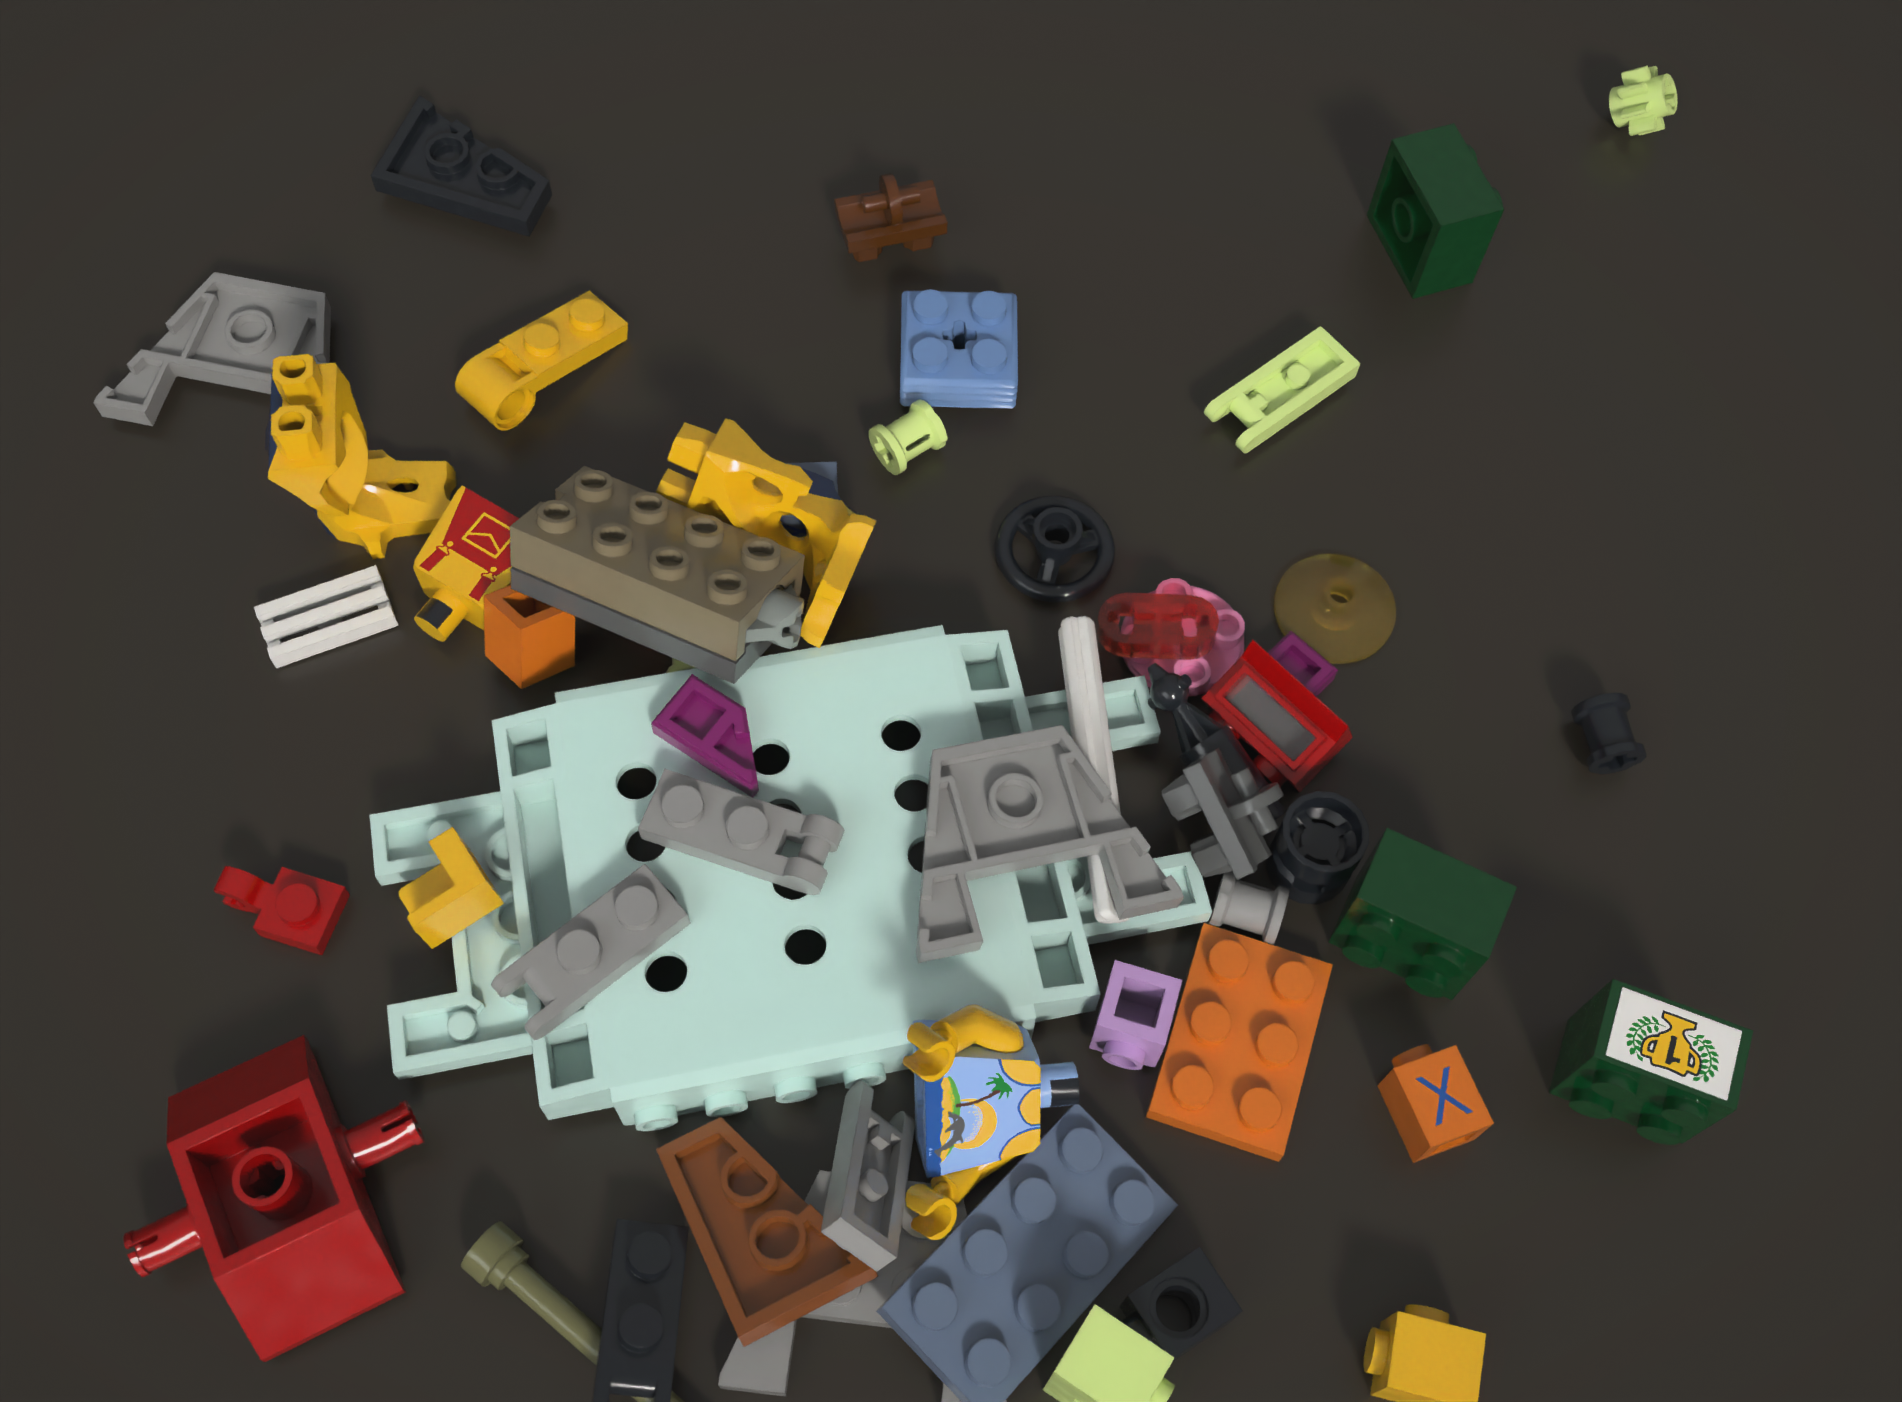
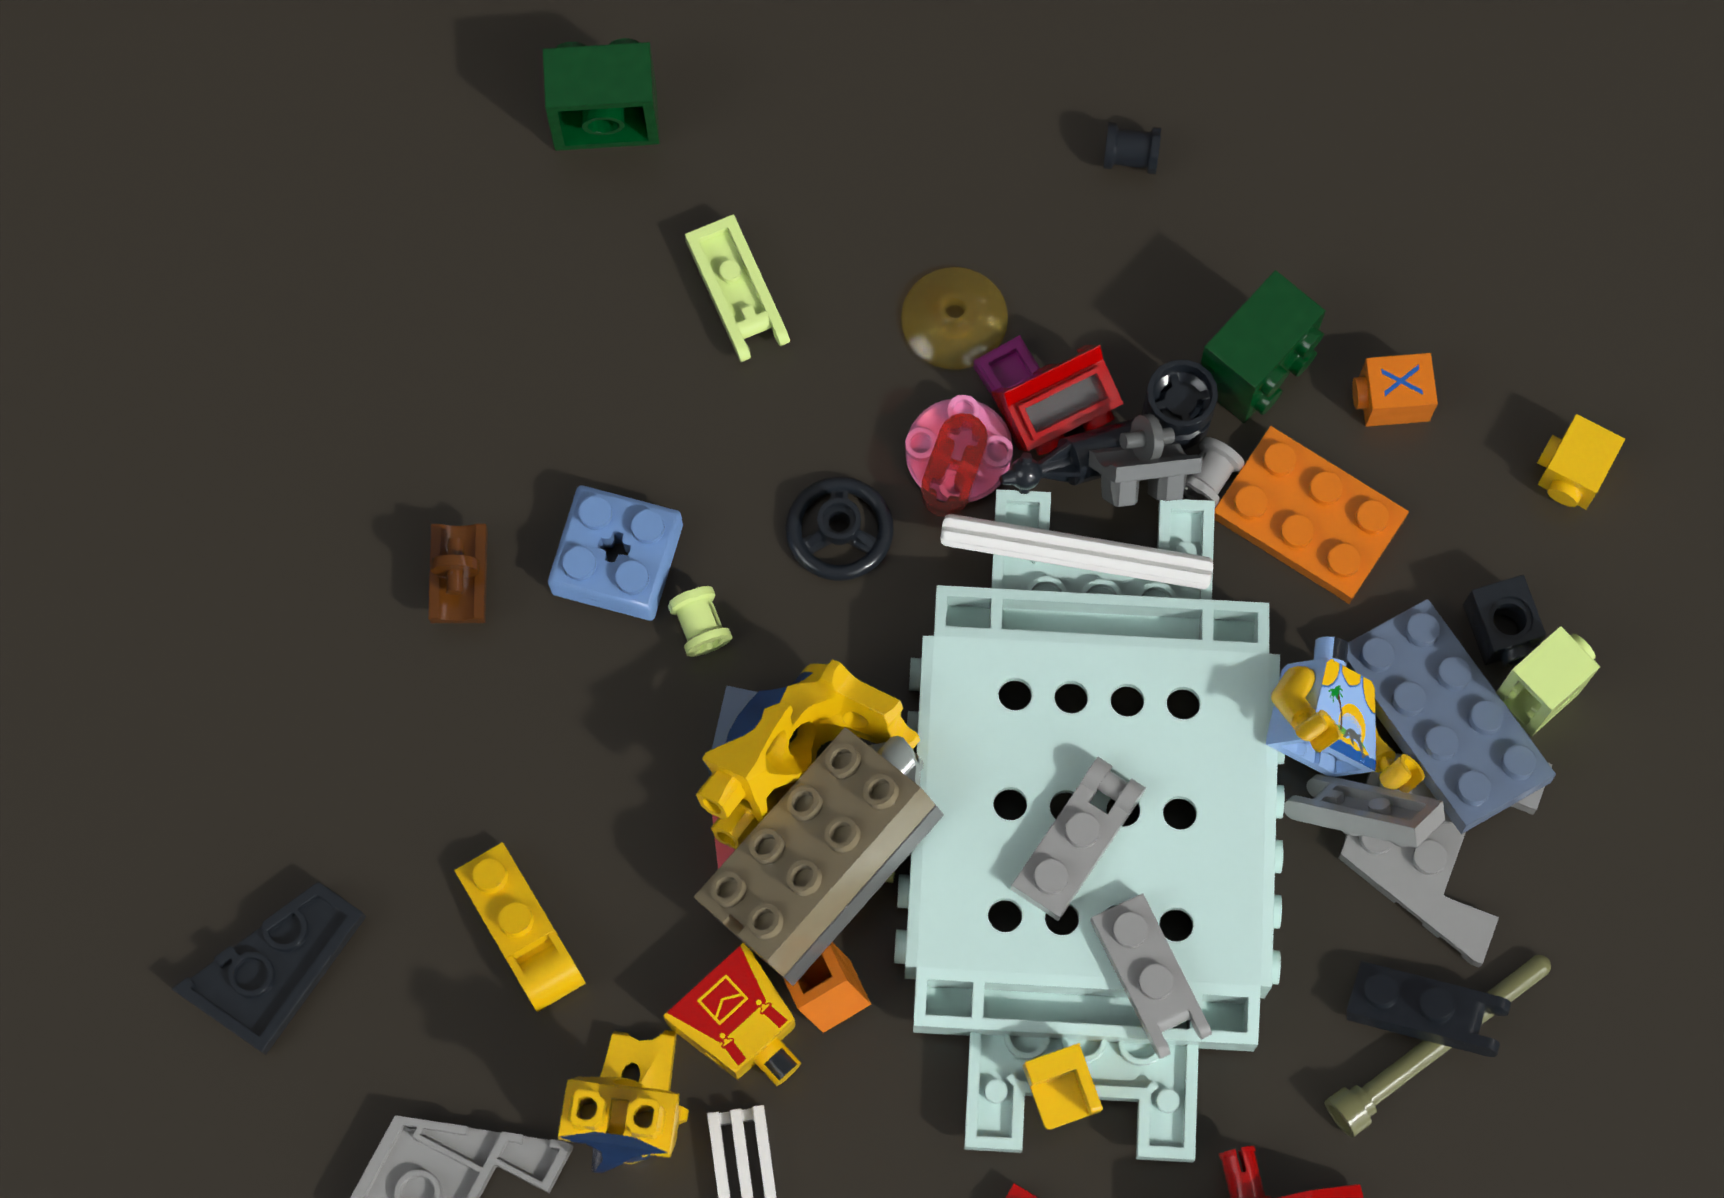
camera: 70 degrees left, 10 degrees up
(711, 732) = (981, 843): magenta tile -> none
(755, 1232) = (1381, 910): dark orange wing -> none
(1018, 808) = (1113, 622): light grey wing -> none
(1135, 1016) = (1287, 583): lavender brick -> none
(1651, 1063) = (1414, 228): dark green brick -> none

